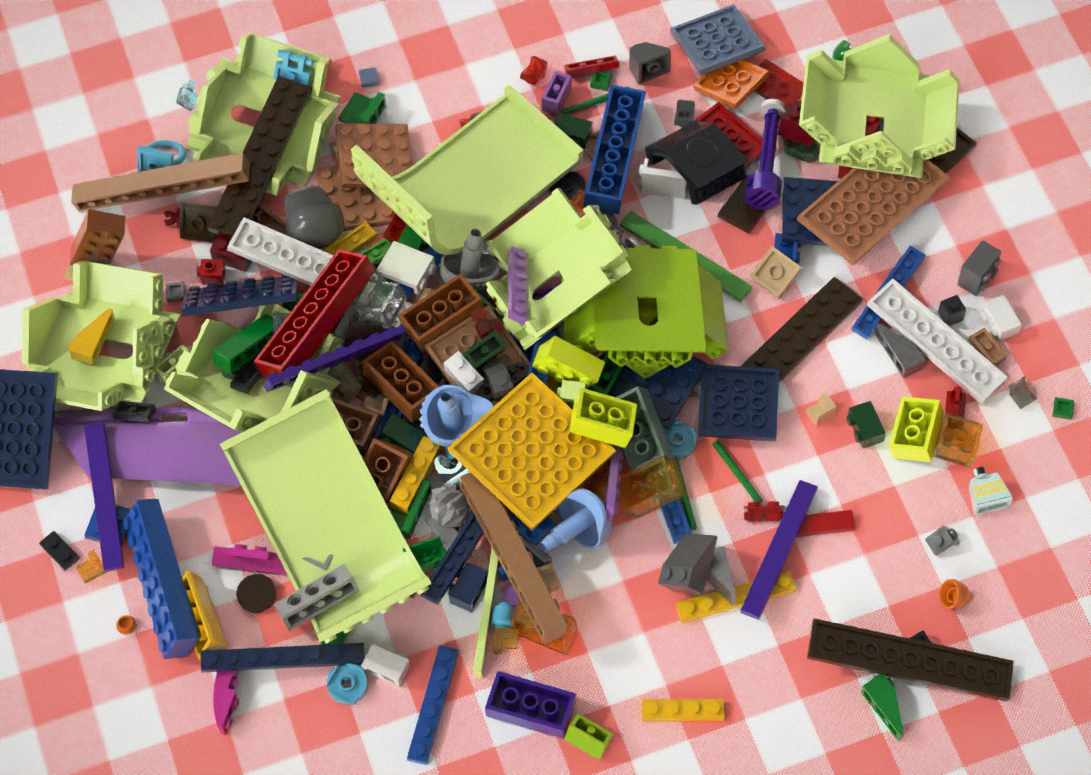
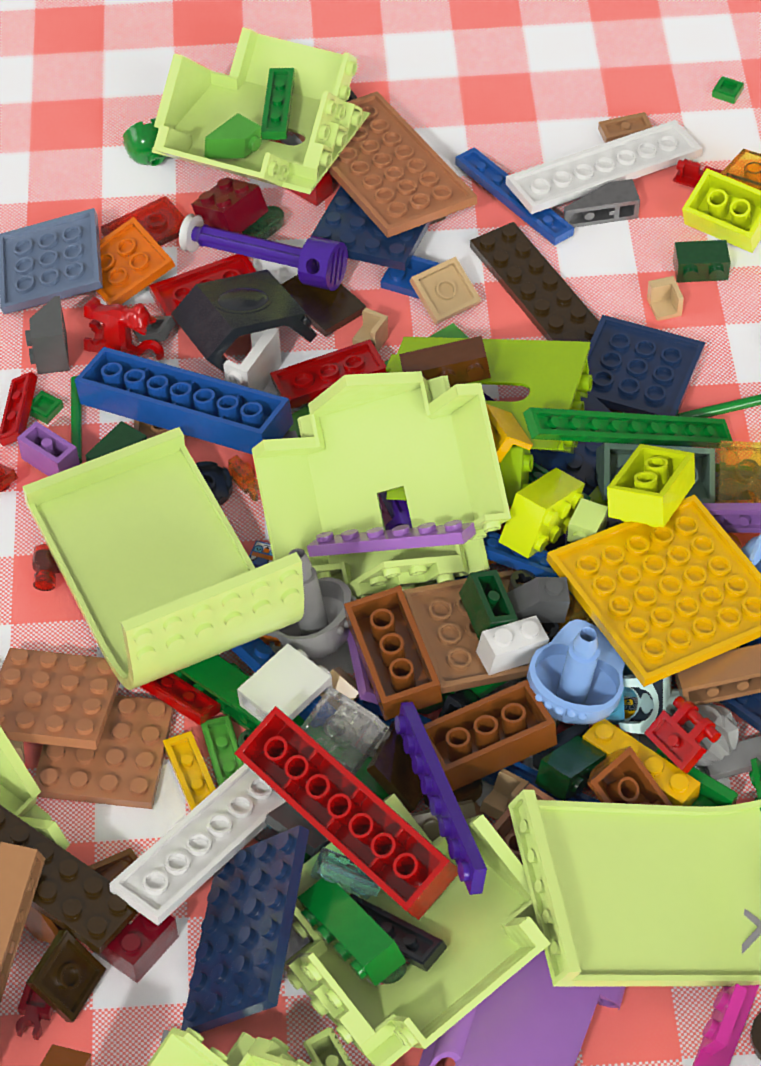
camera: 75 degrees left, 10 degrees down
(212, 271) = (165, 980): red brick -> none
(313, 217) = (144, 795): dark grey piece -> none
(433, 487) = (675, 741): none -> red plate
(485, 326) = (443, 597): clear red piece -> none
(602, 315) = (506, 431): none -> yellow panel
(650, 397) = (625, 428): none -> green plate
(659, 273) = (460, 360): none -> reddish brown brick
(669, 95) = (117, 327): none -> red animal
(675, 223) = (312, 377): none -> red plate
(724, 241) = (374, 328): none -> tan panel
(845, 99) = (233, 139): none -> bright green slope
(897, 117) = (277, 103): none -> green plate
(952, 310) = (564, 140): black brick -> none
(979, 268) = (518, 100): dark grey brick -> none
(1000, 318) = (589, 105): white brick -> none
(1022, 392) = (699, 111): clear smoke panel -> none

